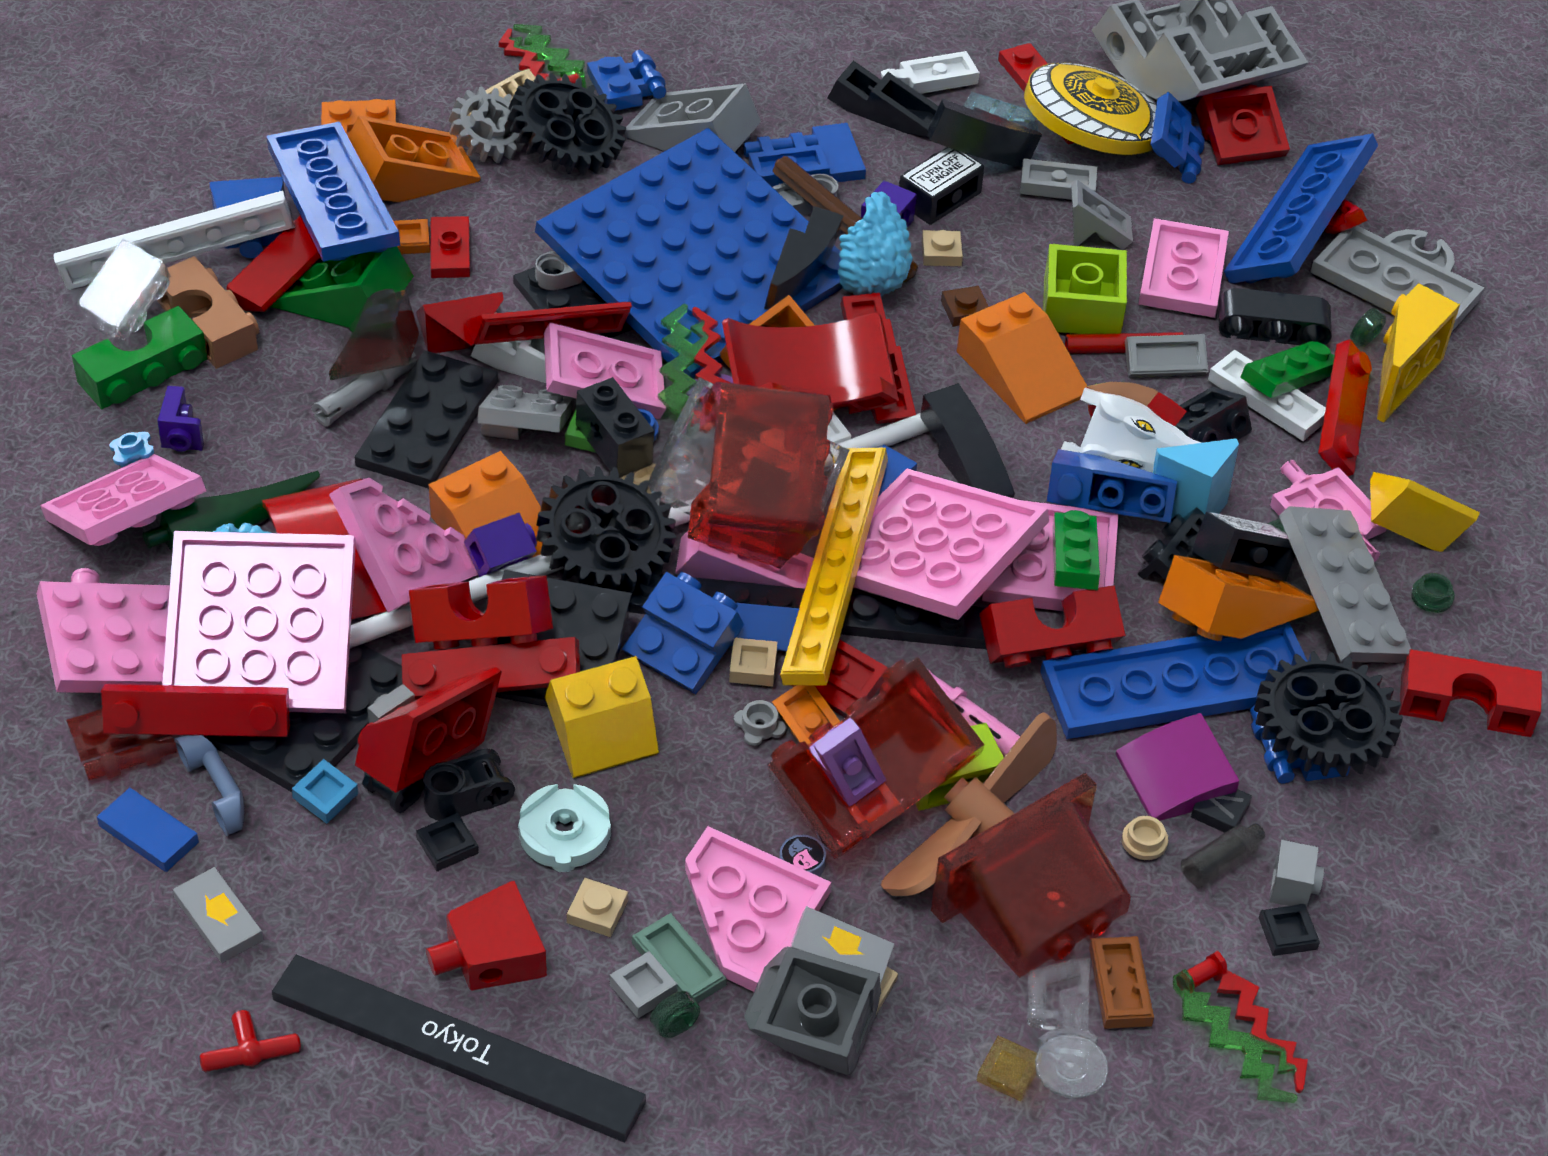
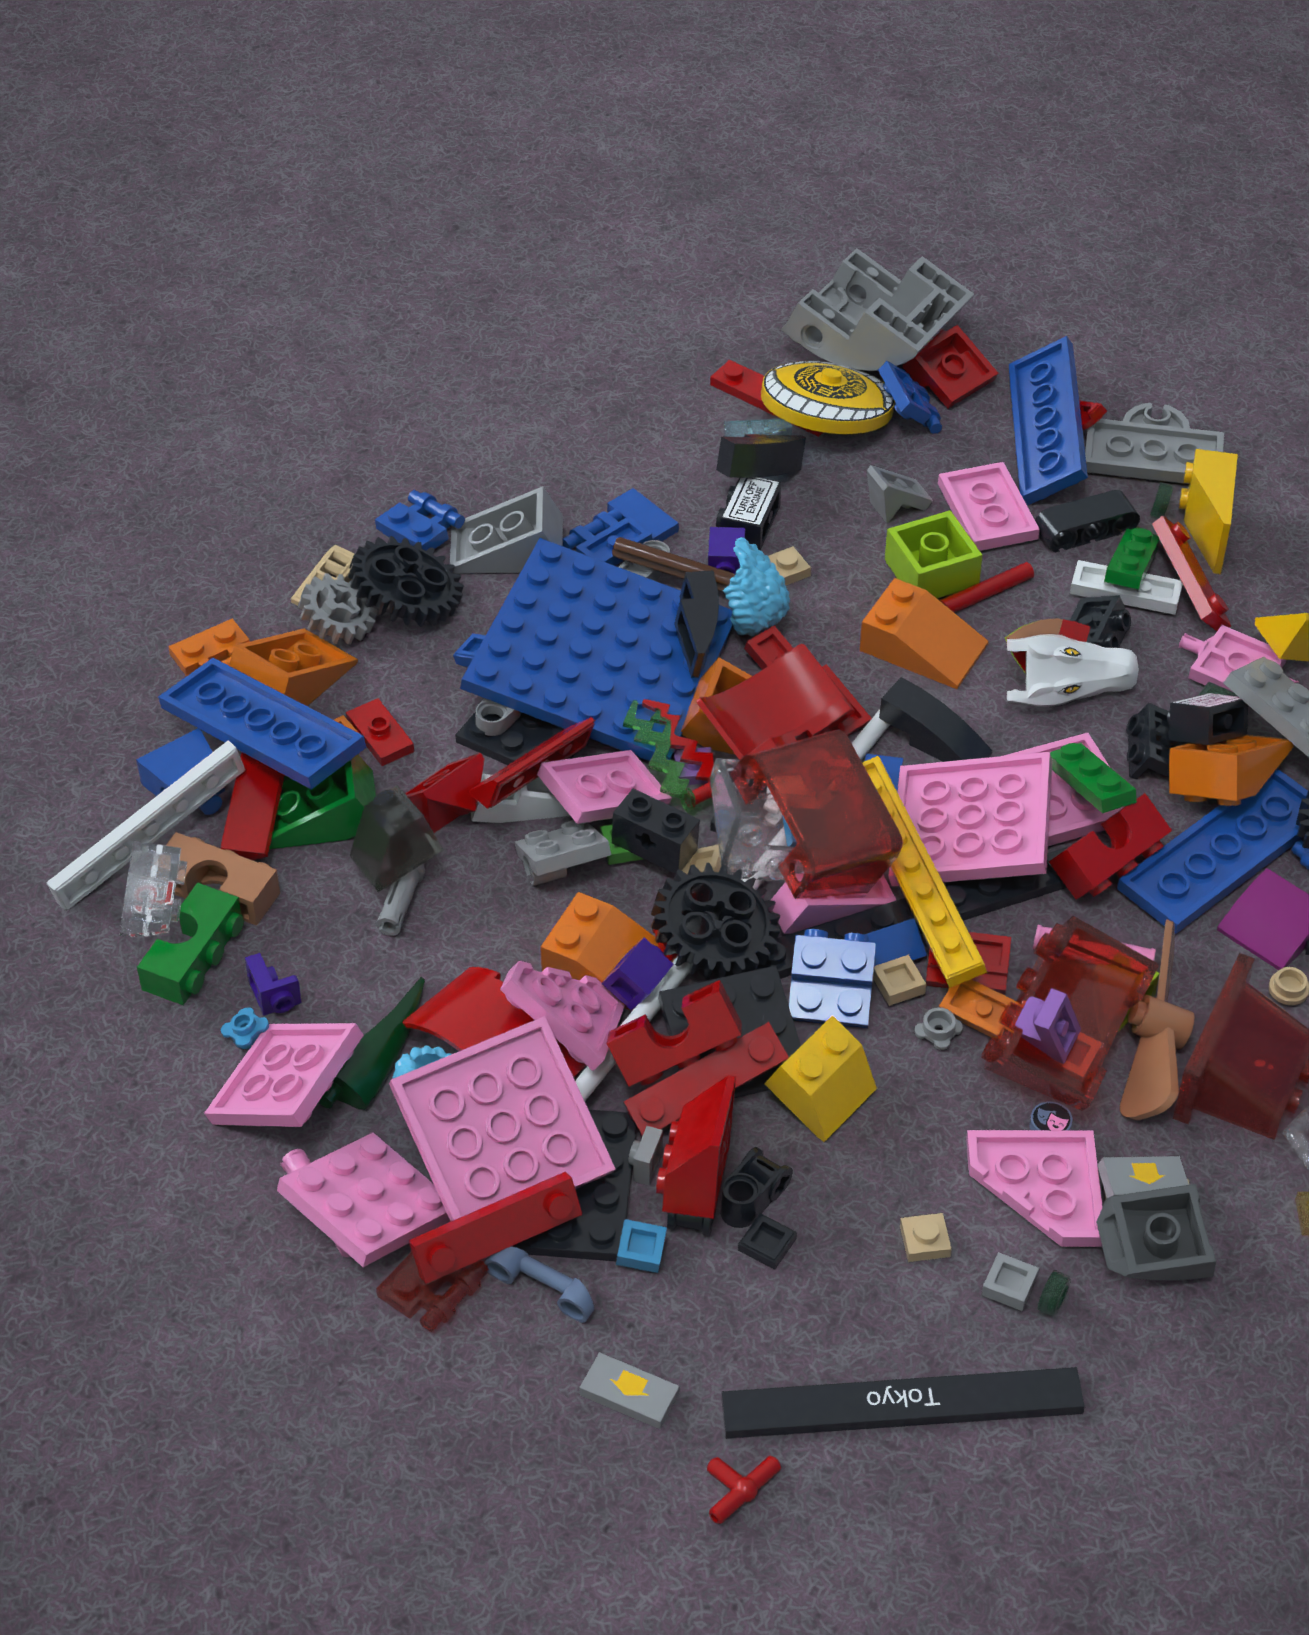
camera: 25 degrees left, 0 degrees up
(147, 829) = (515, 1348): blue tile -> none
(426, 419) = (477, 893): black plate -> none
(491, 941) = (871, 1304): red torso -> none
(538, 50) = (365, 529): clear neon green piece -> none
(564, 848) = (848, 1204): light aqua plate -> none
(680, 957) = (1020, 1244): sand green tile -> none
(883, 100) = (651, 456): black slope -> none
(937, 72) = (670, 418): white plate -> none
(962, 303) = (841, 609): reddish brown plate -> none
(1054, 178) = (836, 470): light grey plate -> none
(1110, 486) = (1070, 713): blue slope -> none
(1166, 355) = (1027, 586): light grey tile -> none
(1202, 474) = (1130, 682): medium azure slope -> none

